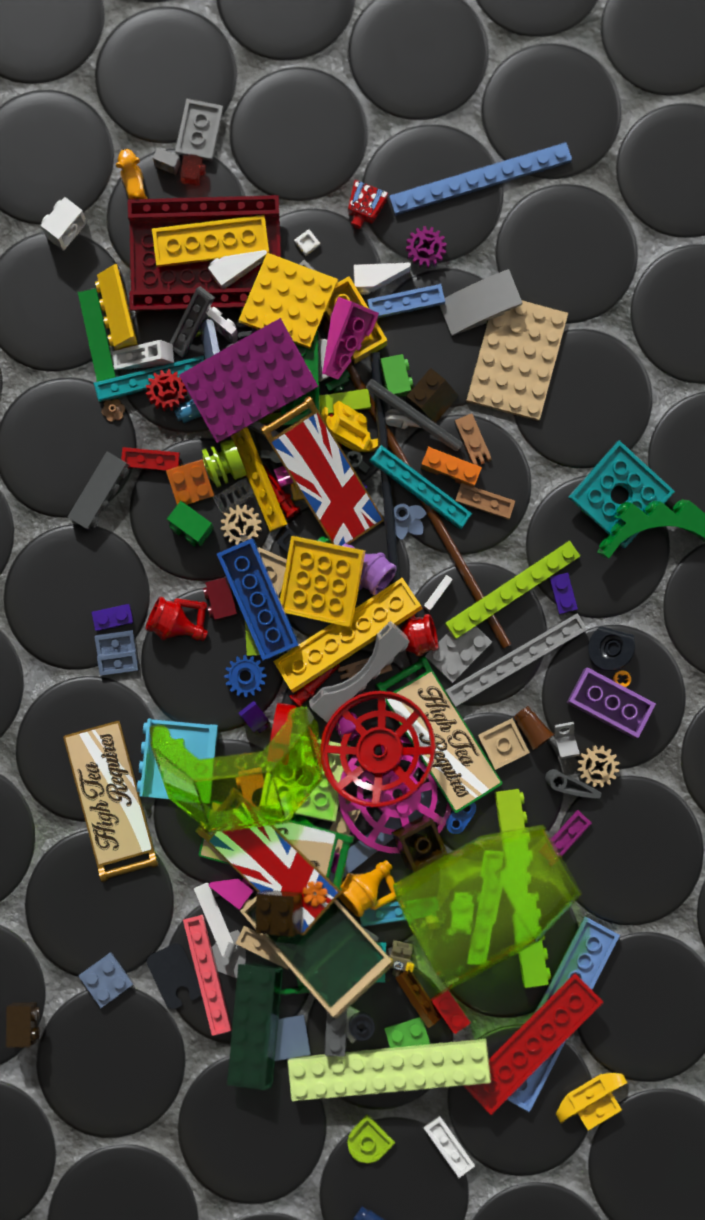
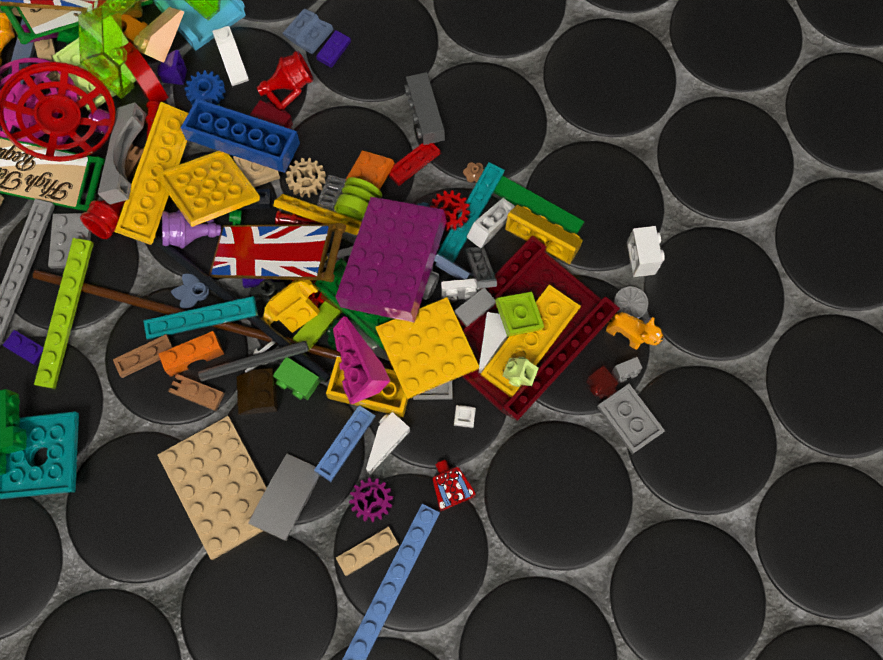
camera: 140 degrees right, 10 degrees down
(110, 204) = (631, 301): none -> light grey wheel
(190, 524) = (338, 141): green brick -> none
(198, 687) = (230, 55): none -> white slope
(201, 259) = (519, 314): none -> lime plate
(227, 296) = (475, 307): none -> light grey tile
(237, 741) = (159, 34): none -> light nougat slope
(244, 219) = (520, 372): none -> yellowish green brick
(437, 593) = (119, 261): white tile -> none
(460, 219) = (367, 551): none -> tan plate

